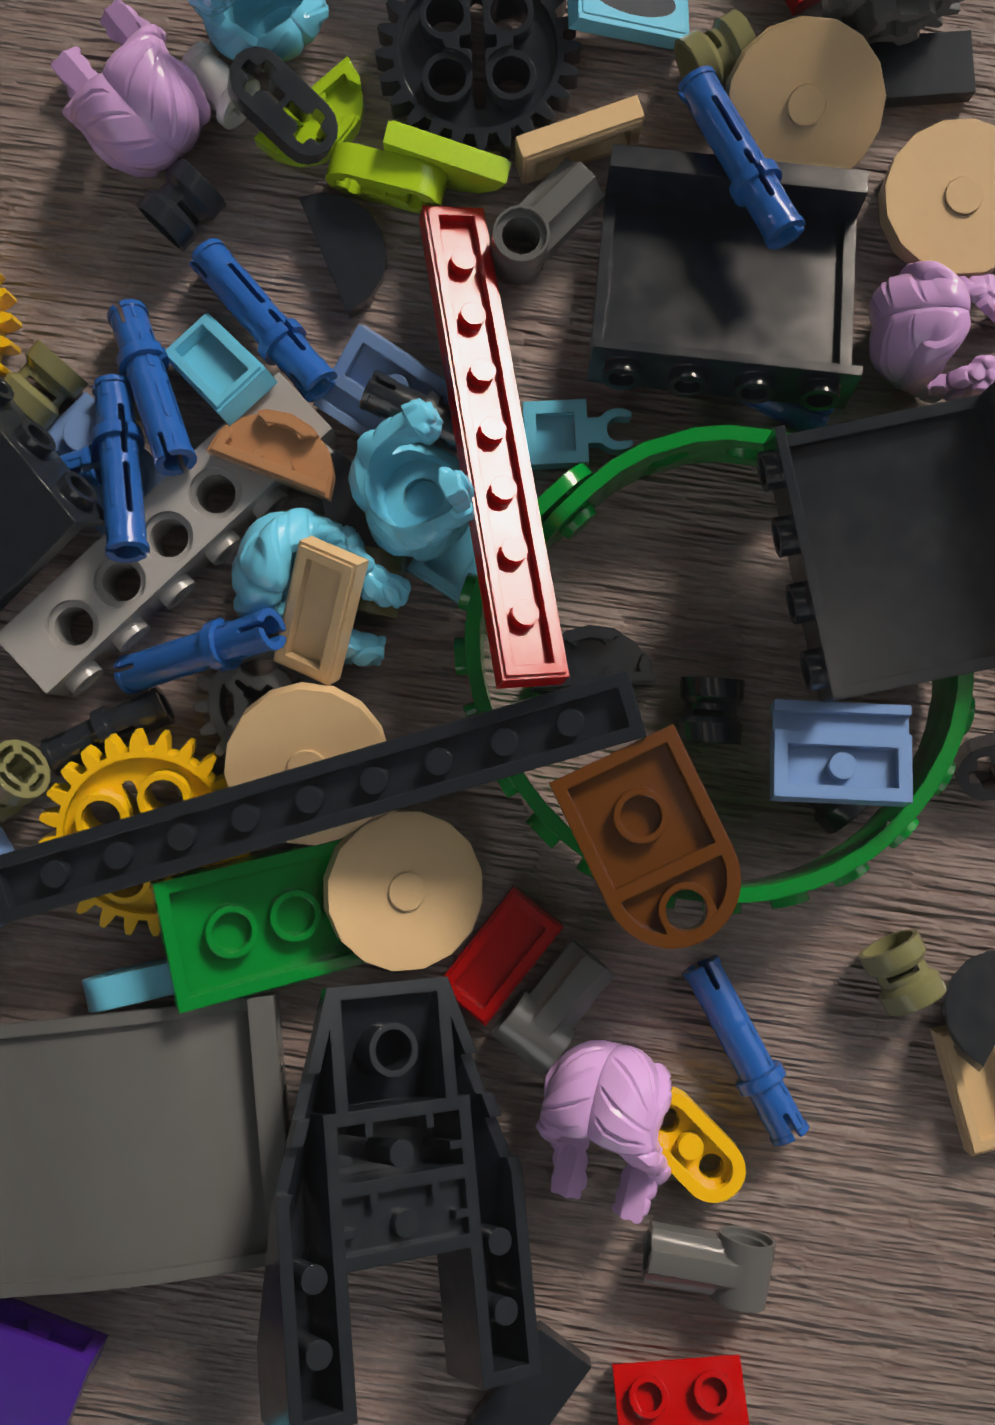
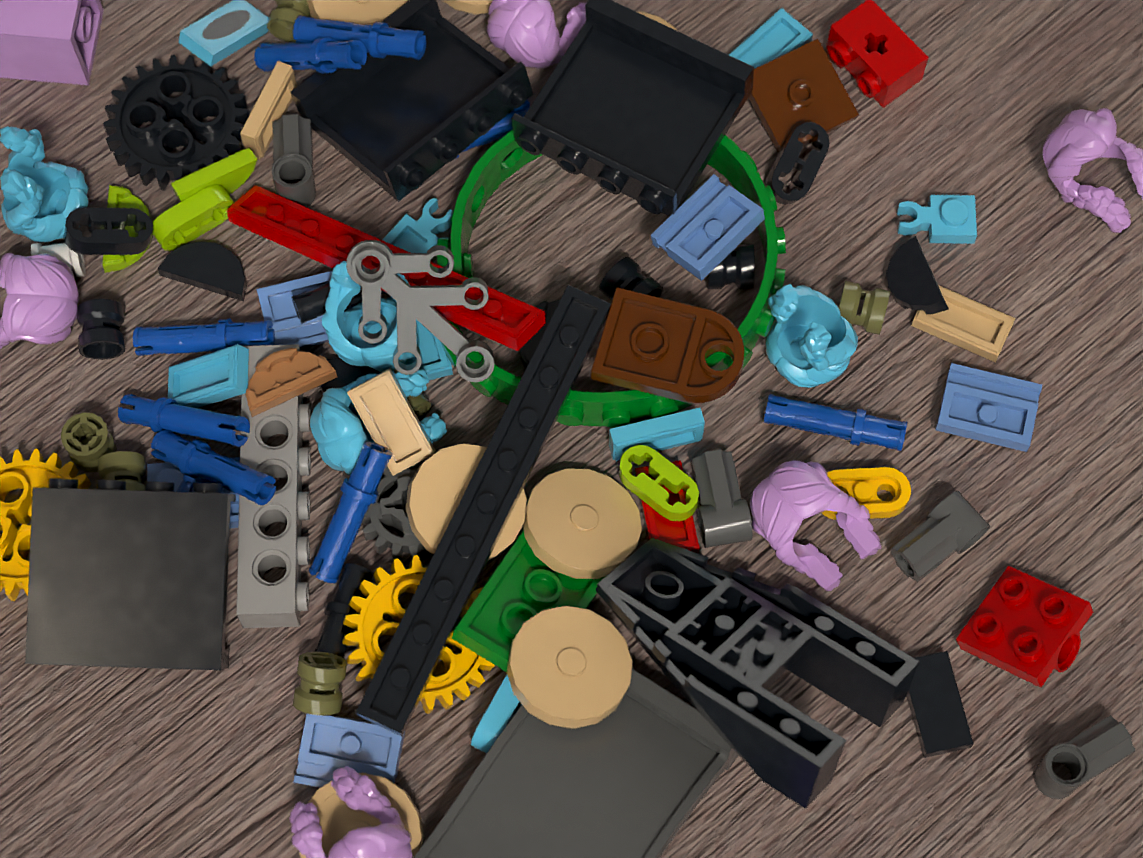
camera: 50 degrees left, 20 degrees down
(63, 322) = (91, 448): none -> olive wheel
(216, 1035) = (569, 667): none -> tan wheel
(460, 637) = (416, 304): none -> plant
(529, 932) = (652, 491): none -> lime beam
(561, 877) = (658, 432): none -> medium azure tile
(681, 134) = (321, 55): none -> blue pin
(814, 959) = (809, 337): none -> medium azure hair
(902, 1195) = (989, 407): none -> medium blue plate

